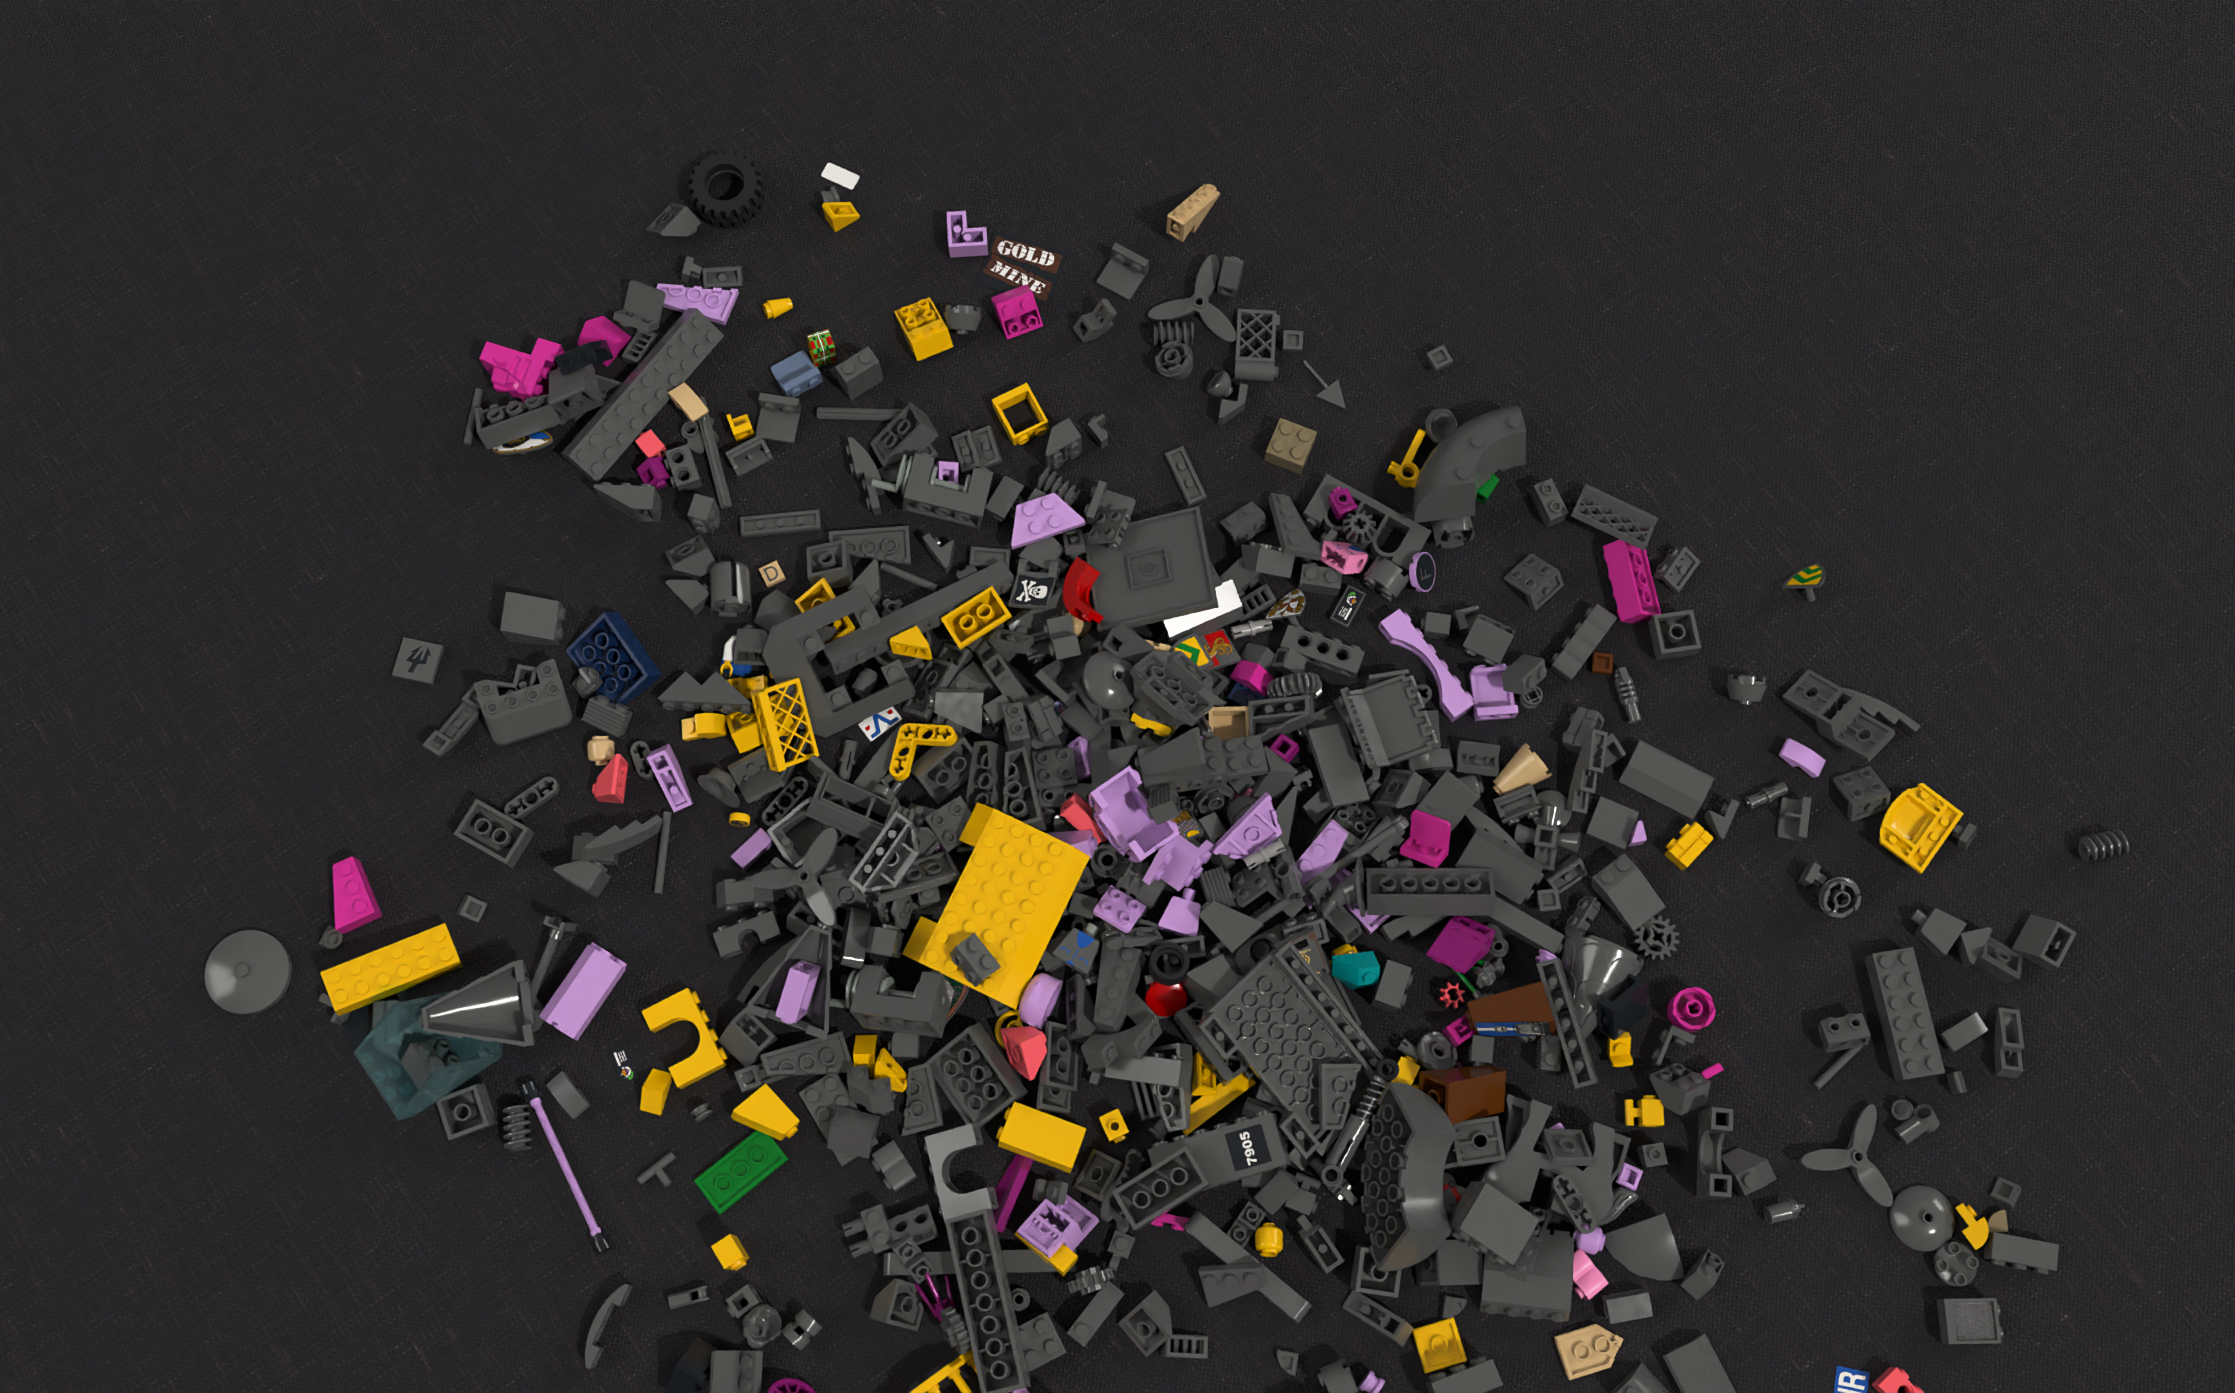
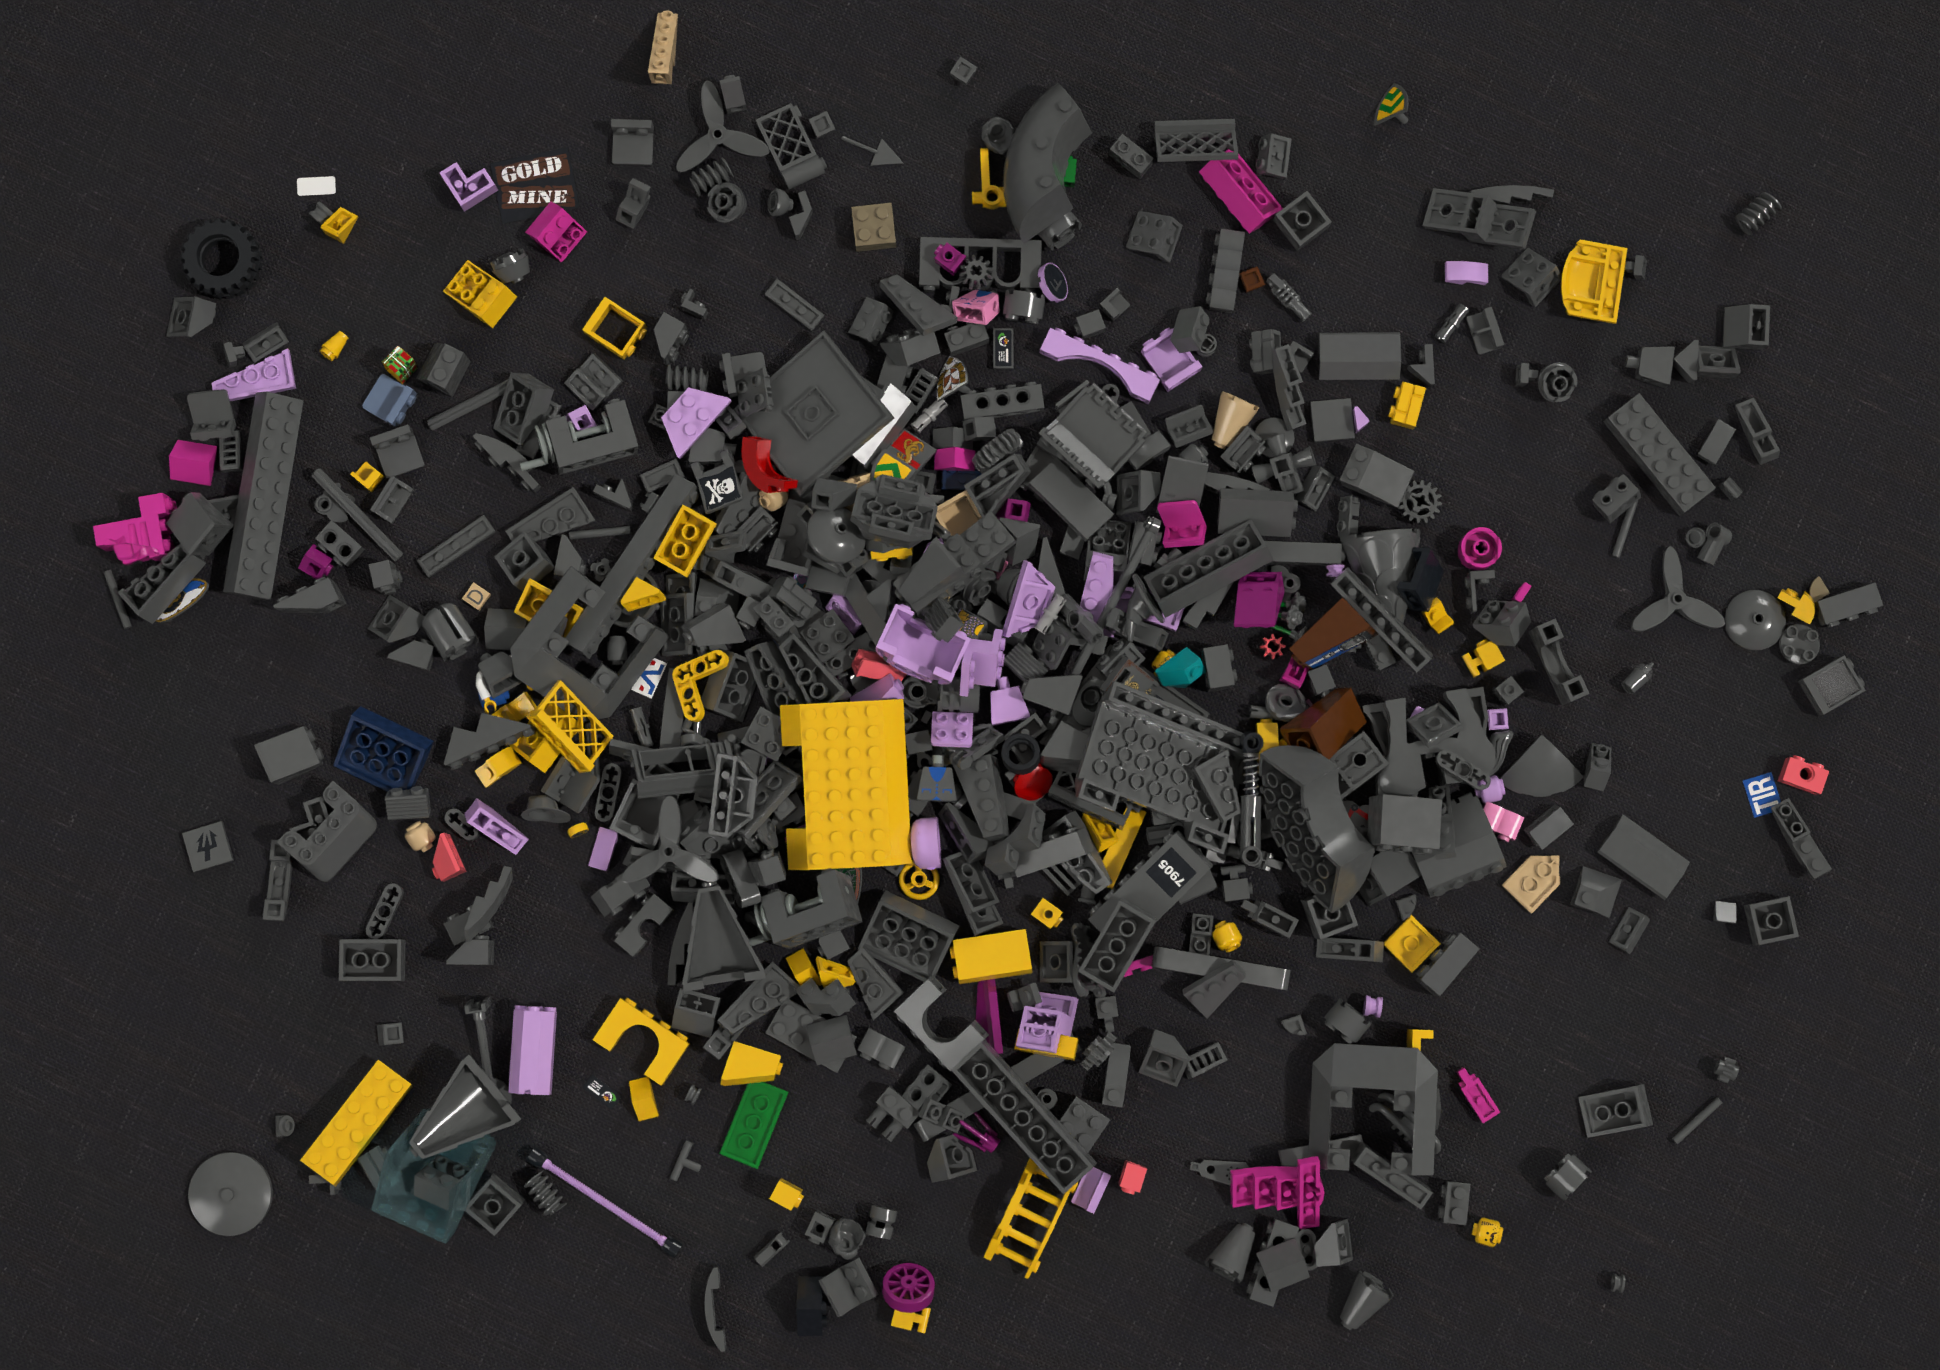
camera: 30 degrees left, 10 degrees up
(353, 896) = (282, 1080): dark pink wedge -> none
(568, 1095) = (571, 1143): dark grey slope -> none
(584, 355) = (190, 492): black panel -> none
(587, 682) = (371, 783): dark grey bracket -> none
(650, 445) = (297, 539): coral brick -> none
(659, 880) = (527, 895): dark grey bar -> none
(689, 402) = (309, 481): tan slope -> none
(798, 991) = (719, 950): lavender window -> none
(955, 1330) = (1010, 1153): dark grey gear -> none
(974, 960) = (856, 843): dark grey bracket -> none
(1003, 498) = (645, 415): dark grey hinge -> none
(1024, 1049) = (937, 892): coral slope -> none
(1062, 637) = (771, 518): dark grey brick -> none
(1277, 1190) = (1212, 892): dark grey slope -> none
(1303, 774) = (1045, 523): dark grey tile -> none
(1488, 639) = (1143, 313): dark grey piece -> none
(1548, 900) = (1312, 519): dark grey tile -> none
(1746, 688) = (1388, 236): dark grey cone -> none
(1747, 1171) = (1592, 660): dark grey slope -> none
(2006, 1192) = (1813, 560): dark grey slope -> none

